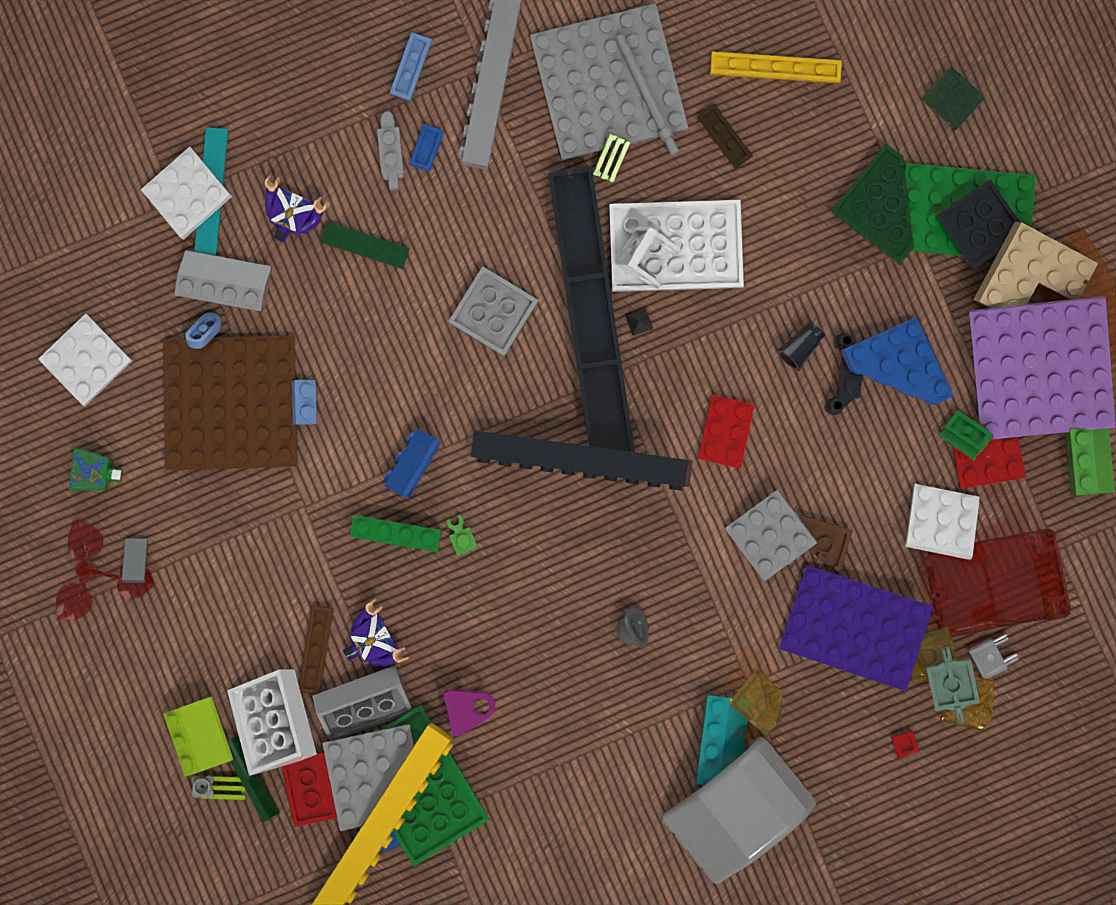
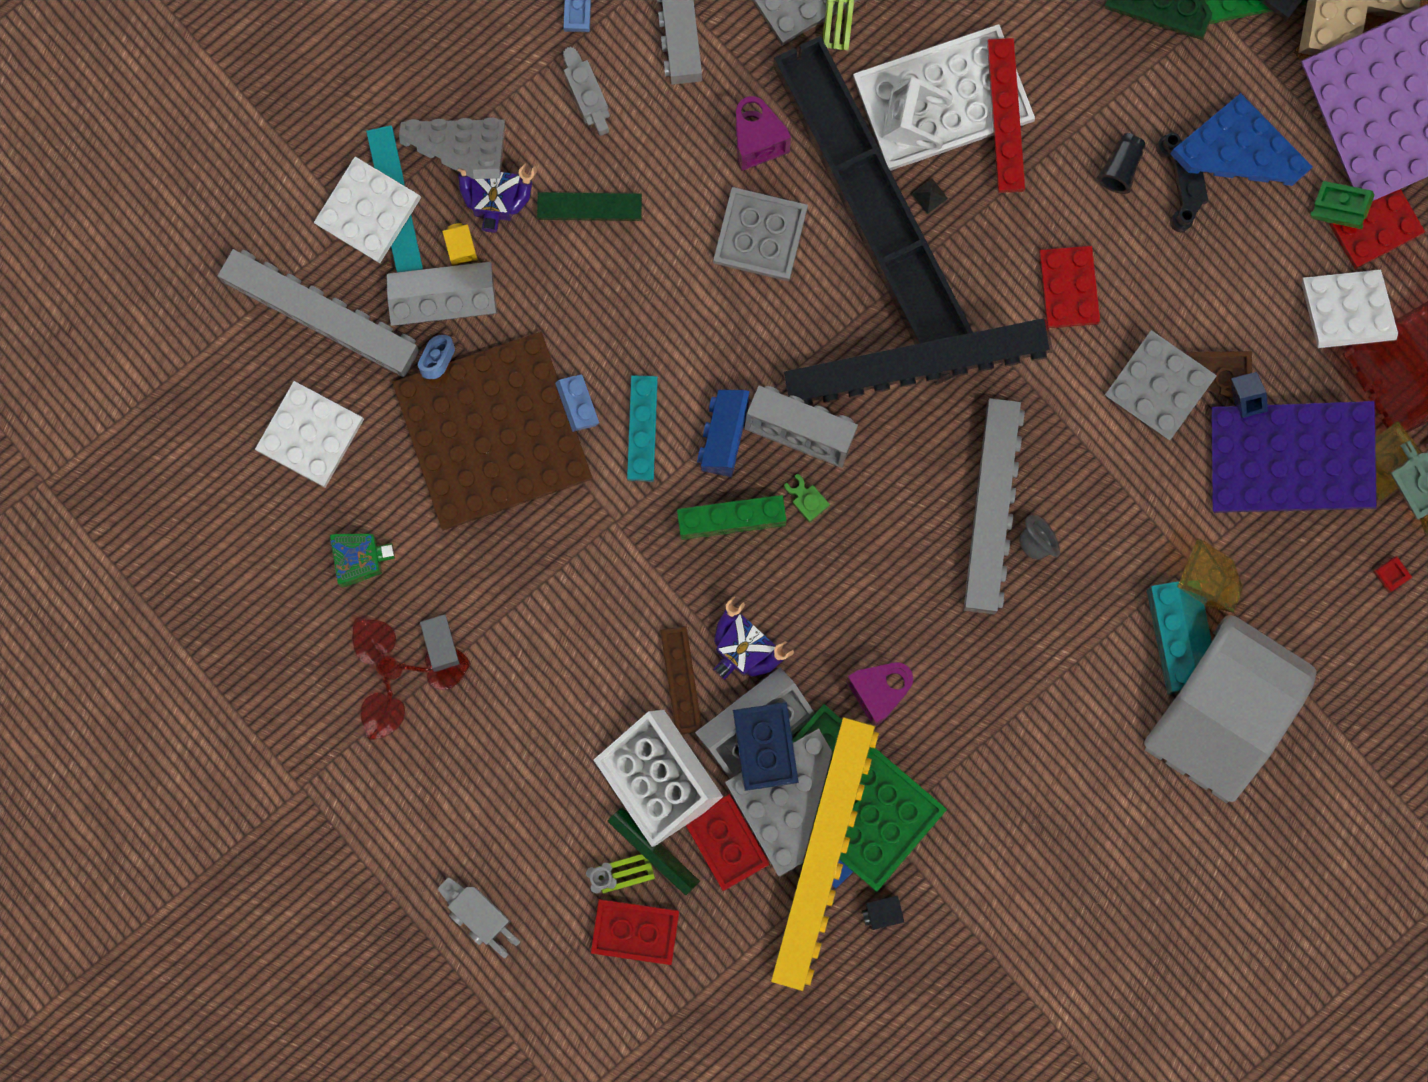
camera: 15 degrees left, 5 degrees down
(98, 784) = (478, 914): none -> light grey hinge
(121, 264) = (318, 312): none -> light grey brick
(198, 736) = (578, 820): lime slope -> none
(216, 836) = (635, 932): none -> red plate
(251, 244) = (459, 244): none -> yellow brick
(275, 164) = (459, 144): none -> light grey plate
(349, 438) = (642, 428): none -> teal plate
(361, 726) = (765, 746): none -> dark blue tile
(413, 884) = (883, 913): none -> black brick
(426, 148) = (624, 77): blue tile -> none
(473, 478) = (800, 425): none -> light grey slope
(515, 236) = (759, 139): none -> magenta hose
(605, 589) = (992, 506): none -> light grey brick
(720, 277) = (1006, 115): none -> red plate
(837, 567) = (1249, 394): none -> dark blue brick

